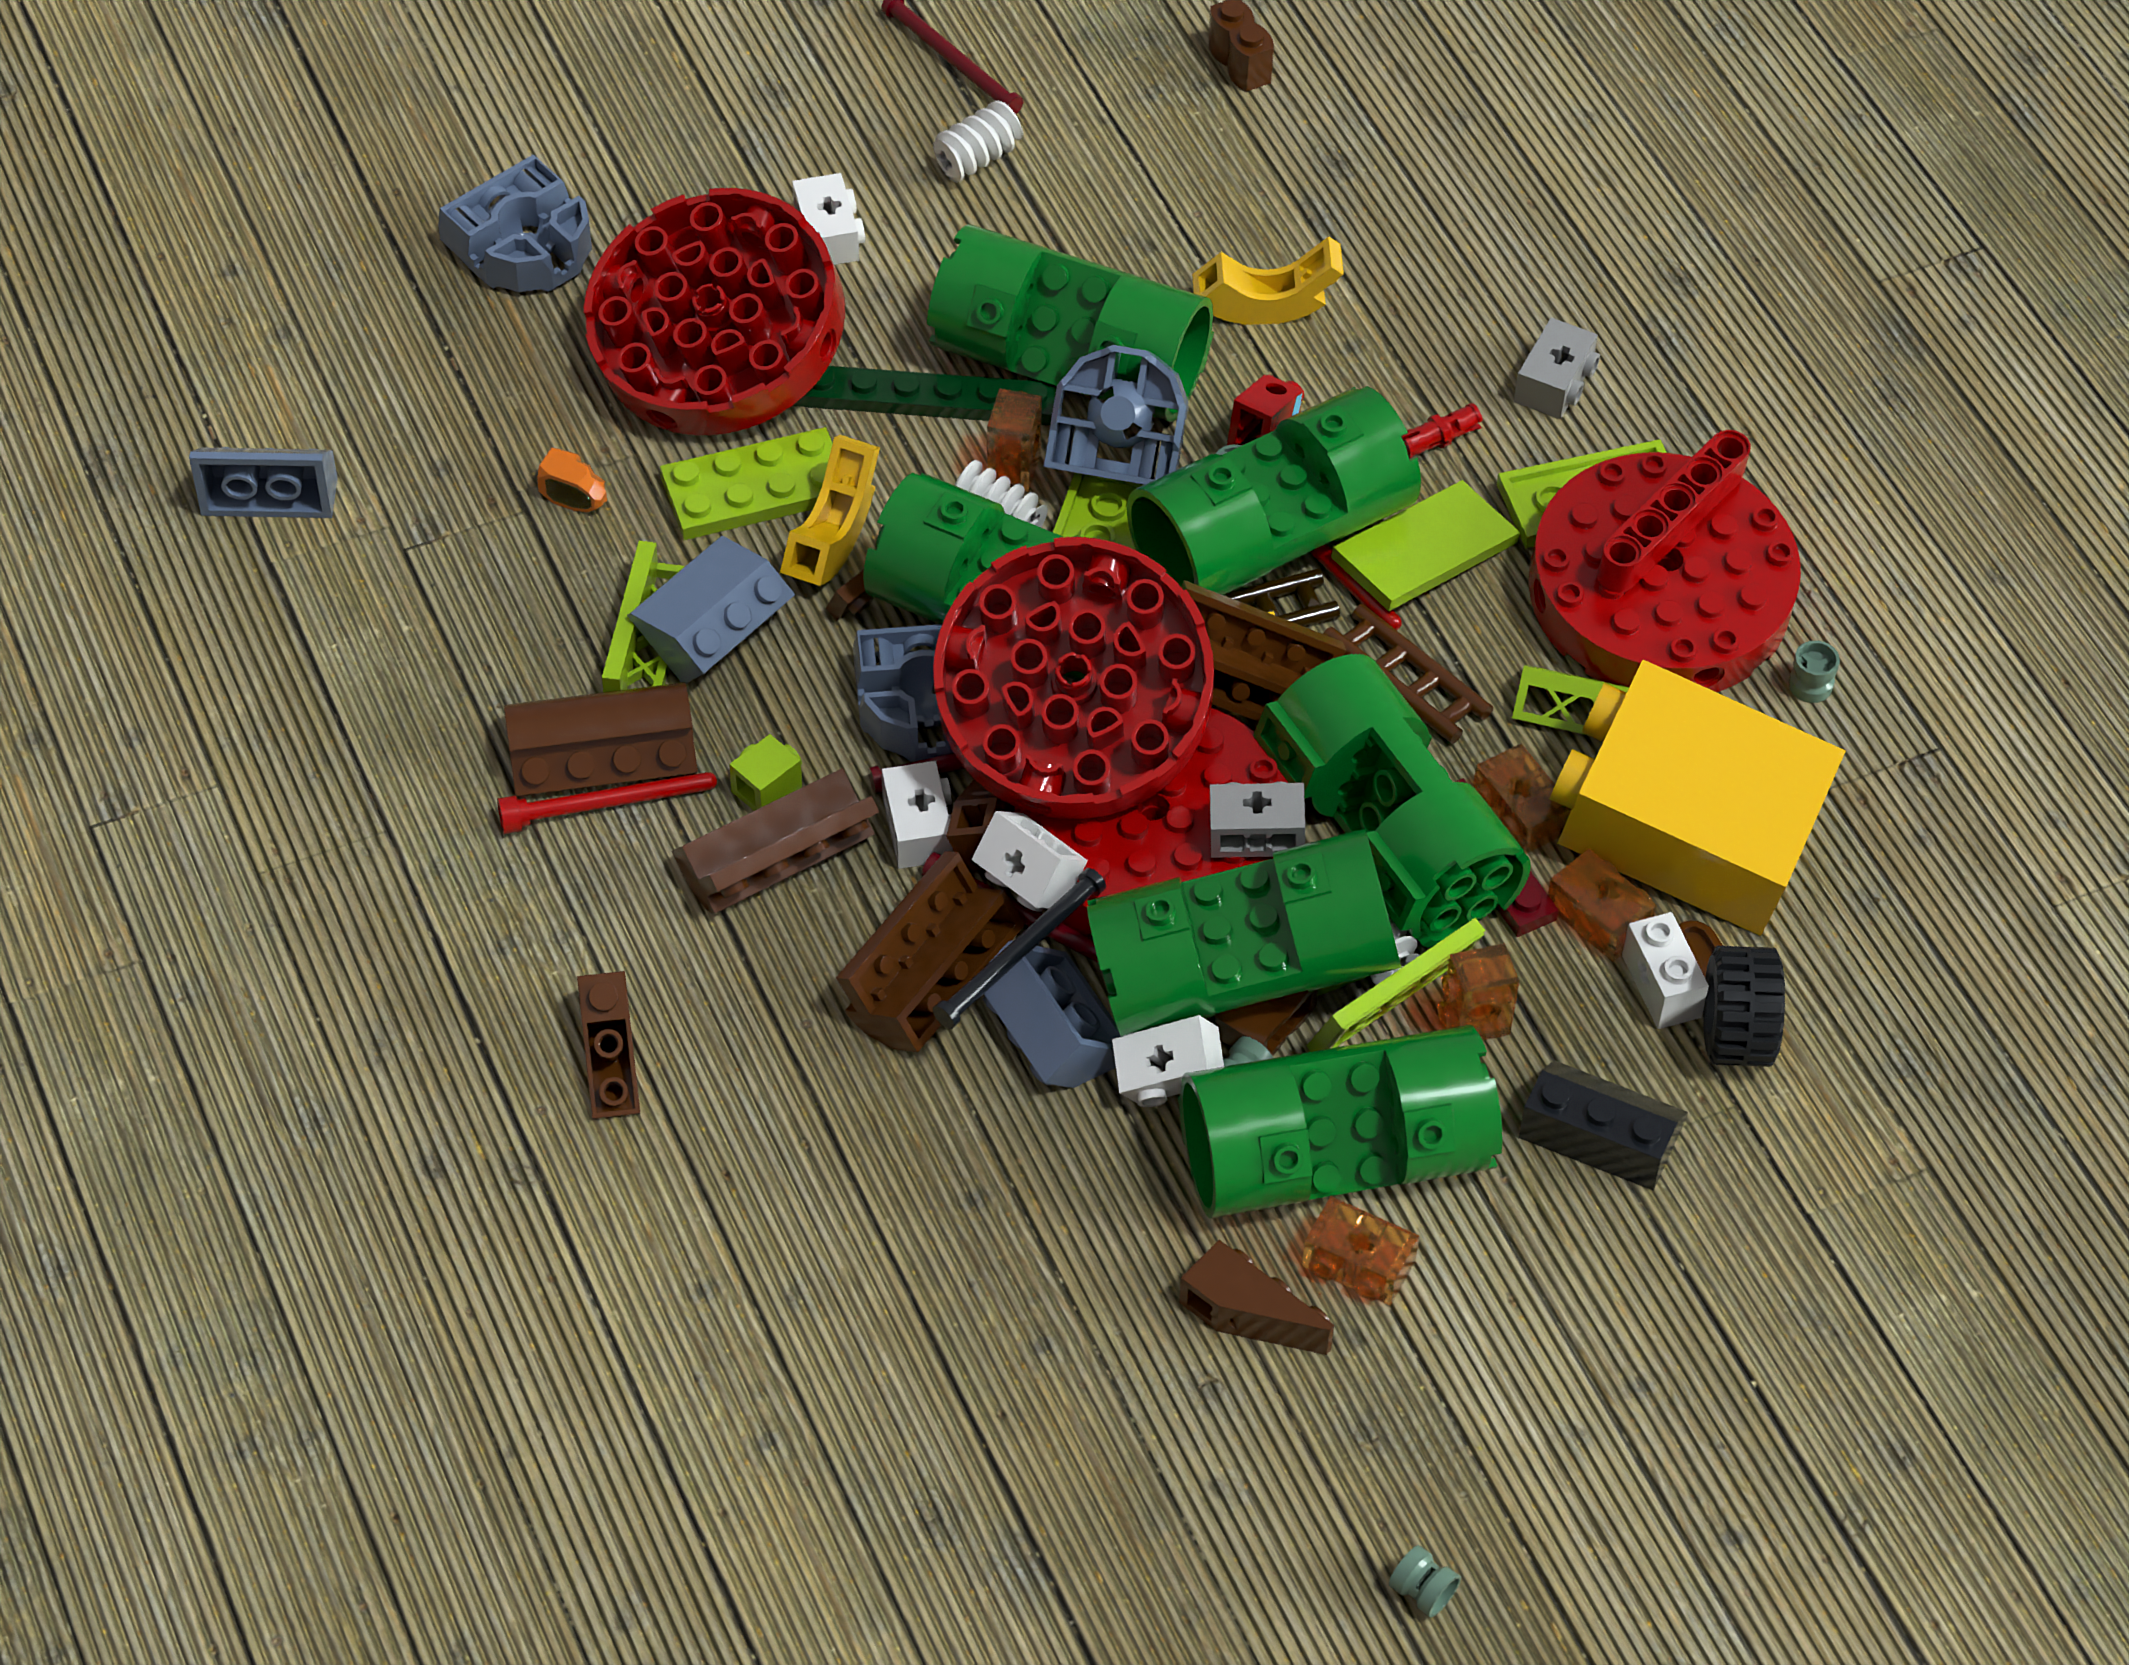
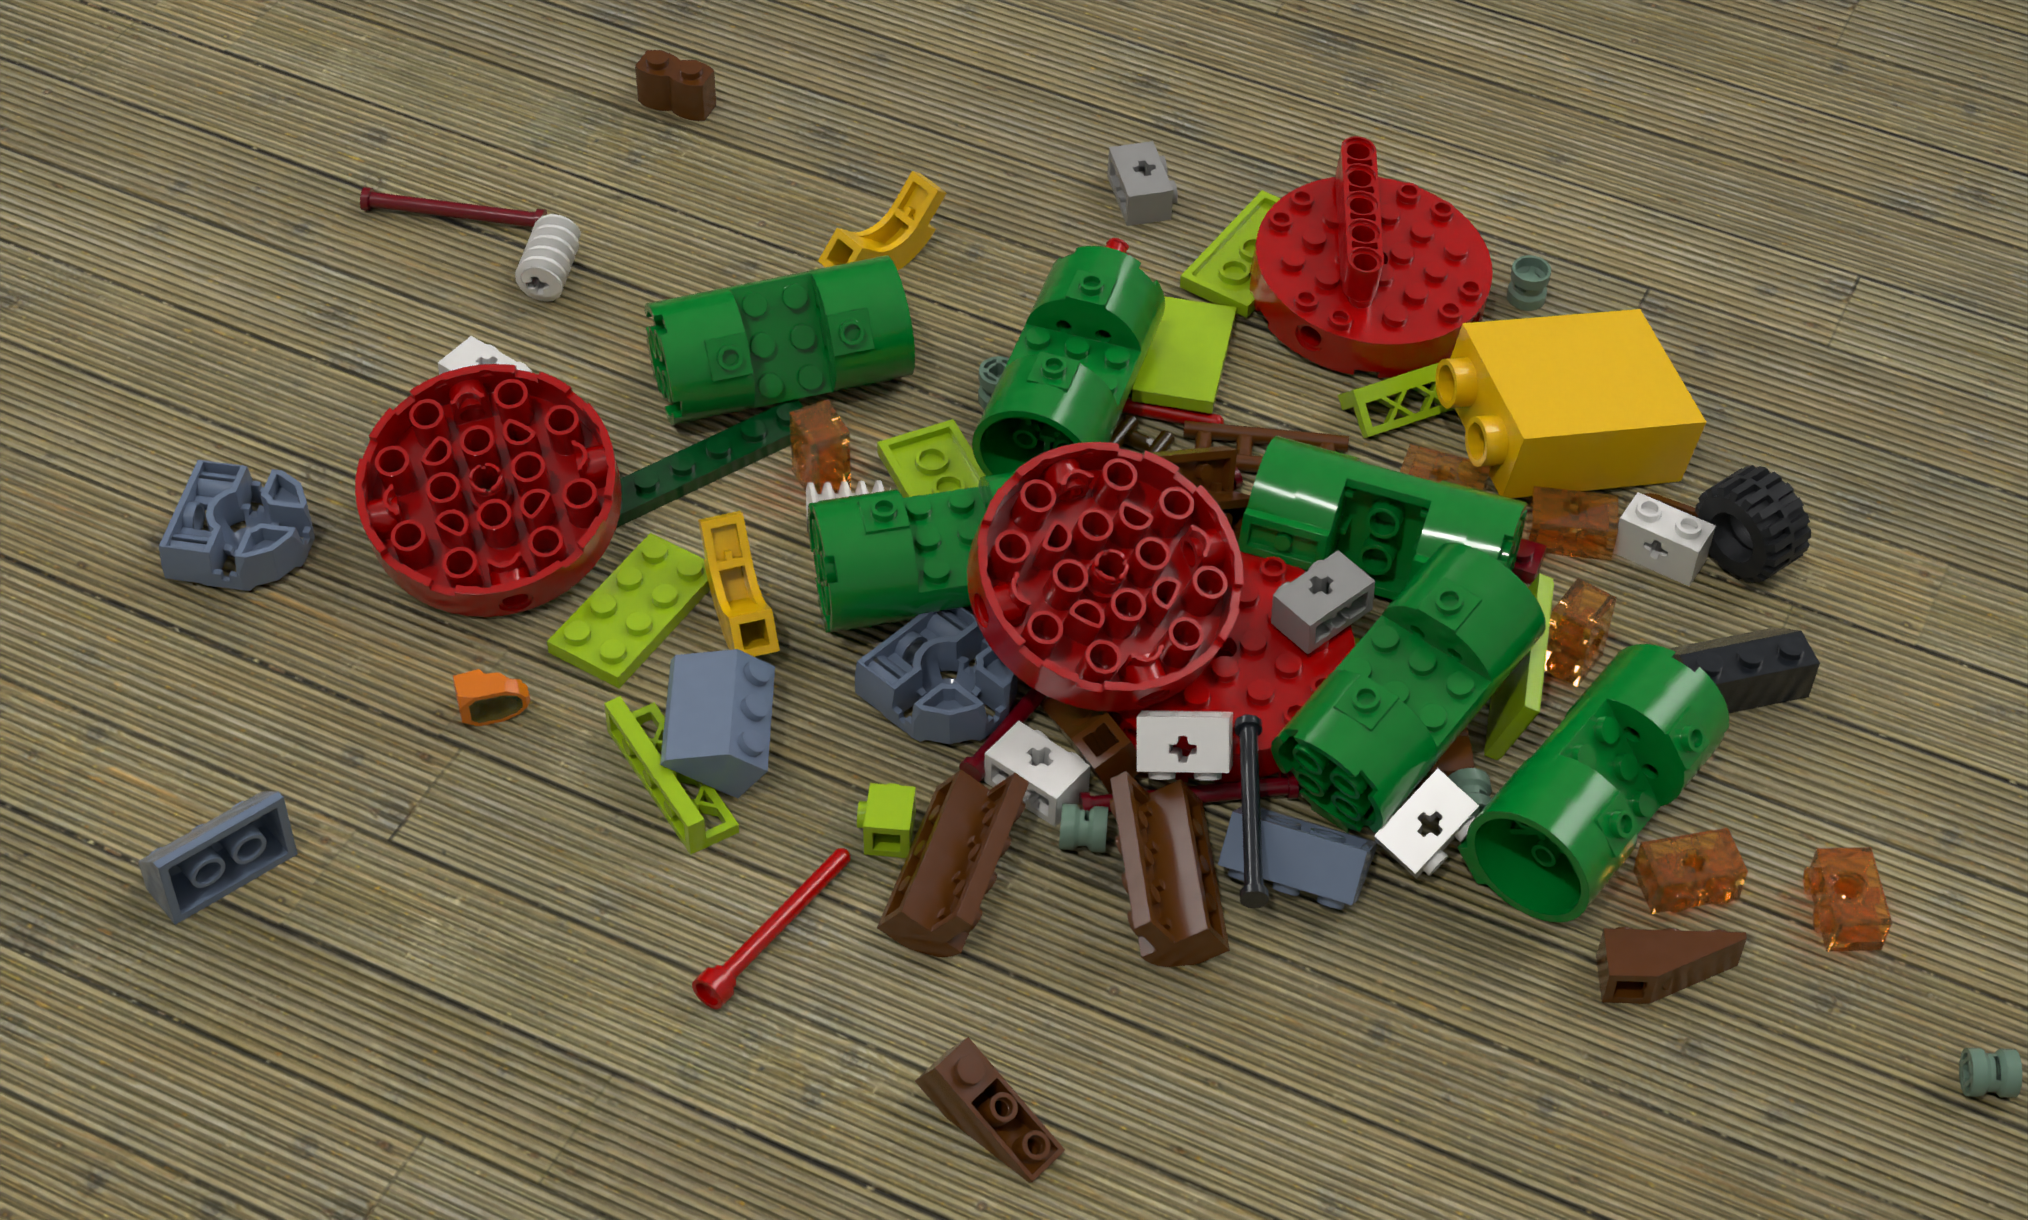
camera: 40 degrees left, 5 degrees down
(600, 738) = (727, 876): reddish brown brick -> none
(849, 598) = (810, 642): reddish brown plate -> none
(899, 874) = (1083, 828): none -> sand green wheel
(1105, 421) = (947, 397): sand blue connector -> none
(1262, 408) = (984, 322): red torso -> none
(1464, 1391) = (1847, 899): none -> clear orange brick

